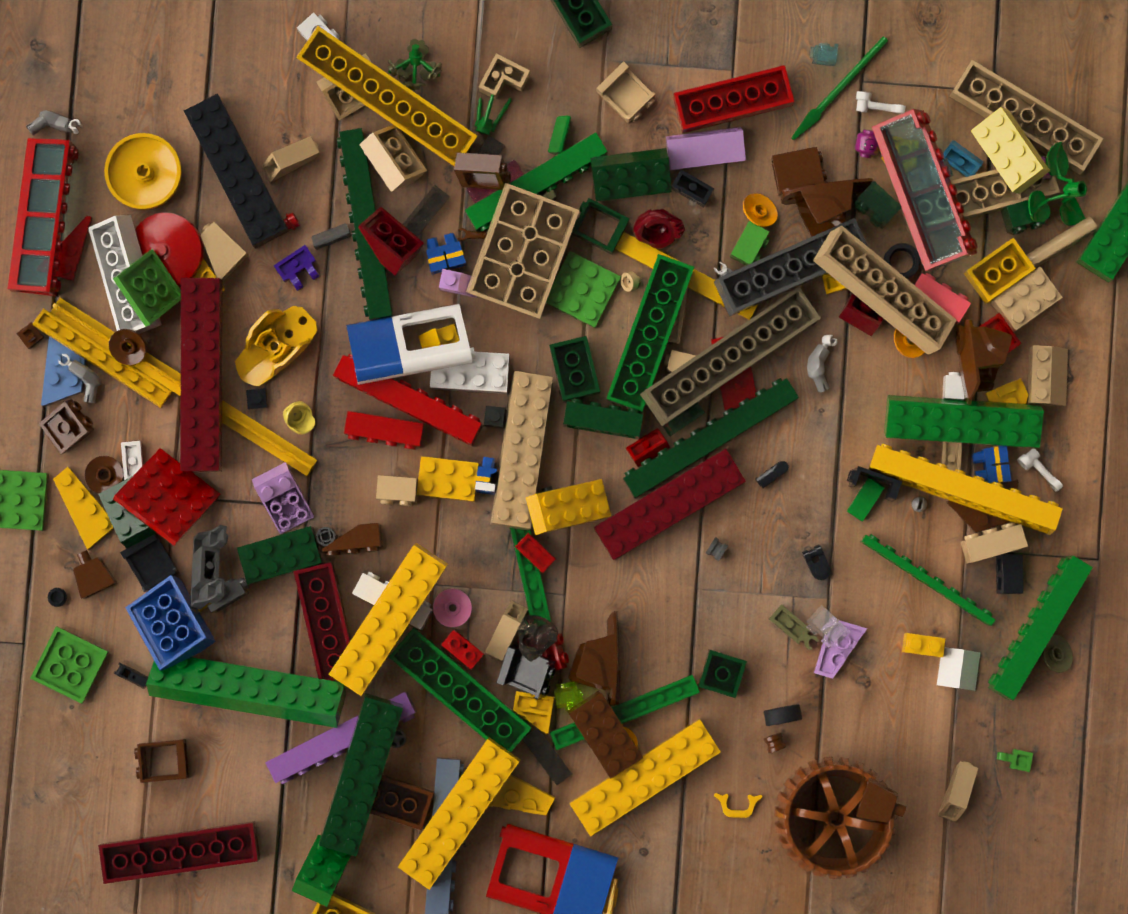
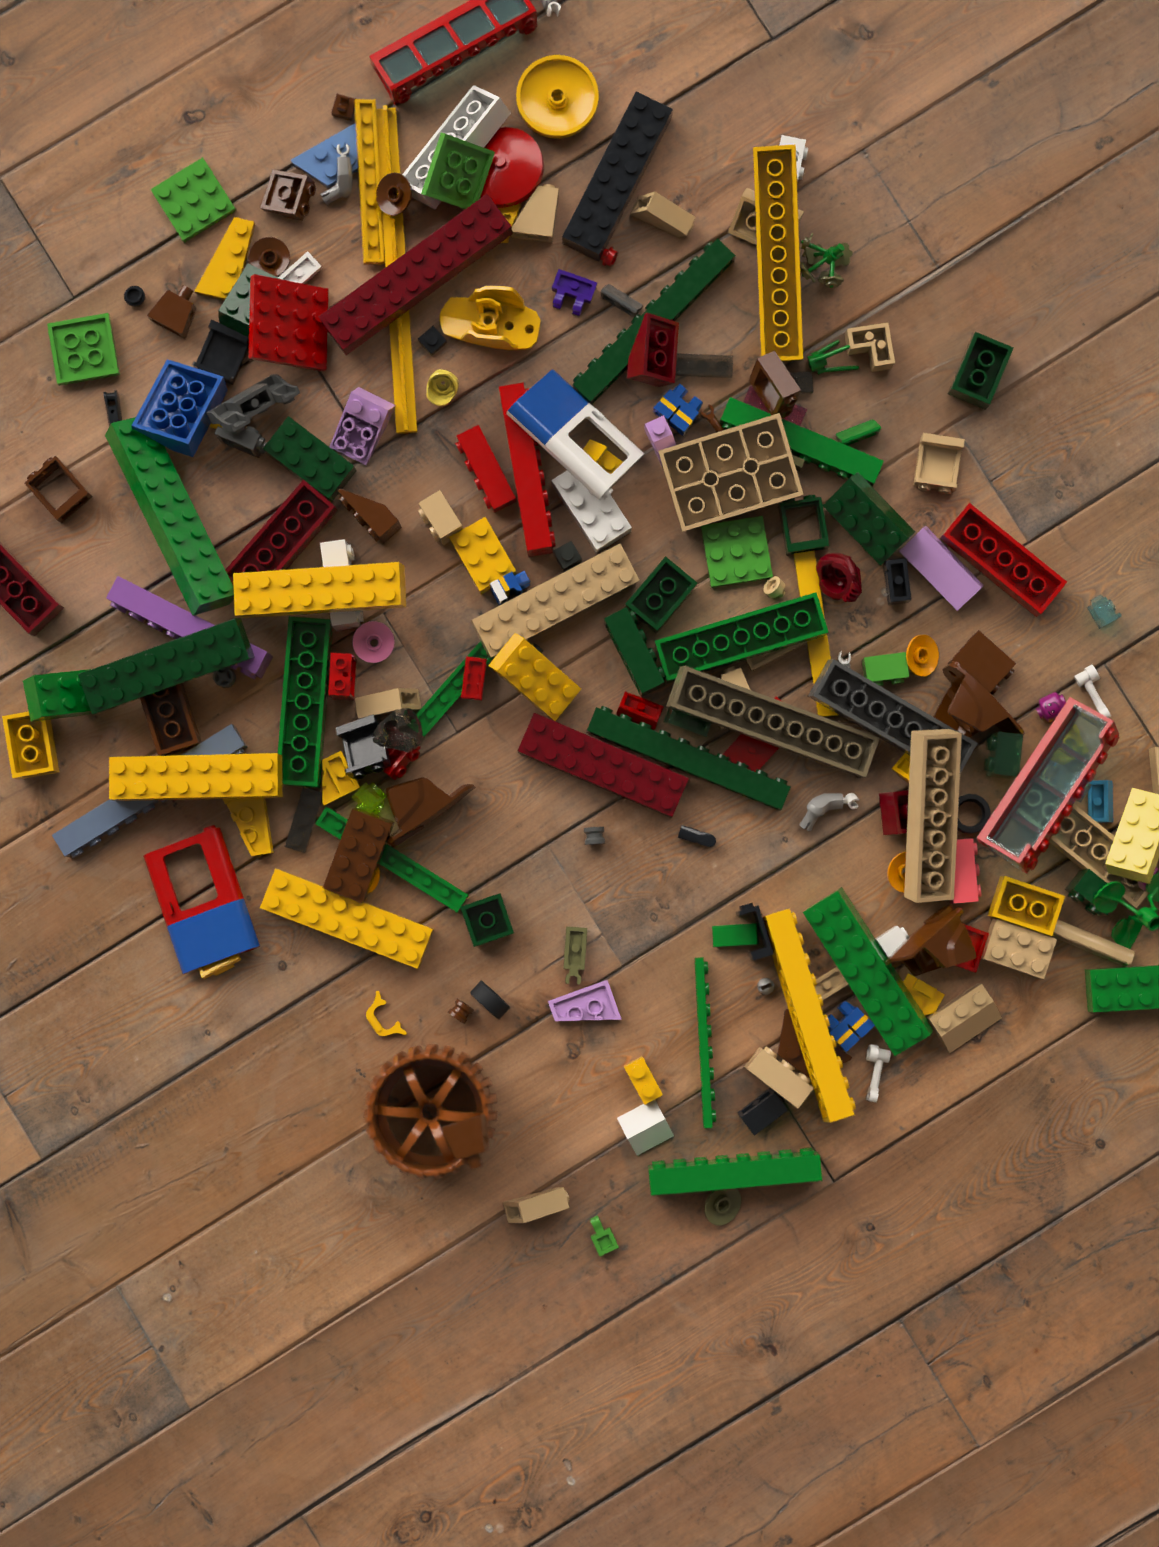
camera: 55 degrees right, 0 degrees up
(73, 249) = (444, 88): red wing -> none
(326, 536) = (359, 489): dark grey wheel -> none
(393, 157) = (729, 301): tan brick -> none
(815, 114) = (1043, 642): green piece -> none
(820, 569) = (643, 940): black plate -> none
(828, 627) = (596, 983): clear brick -> none

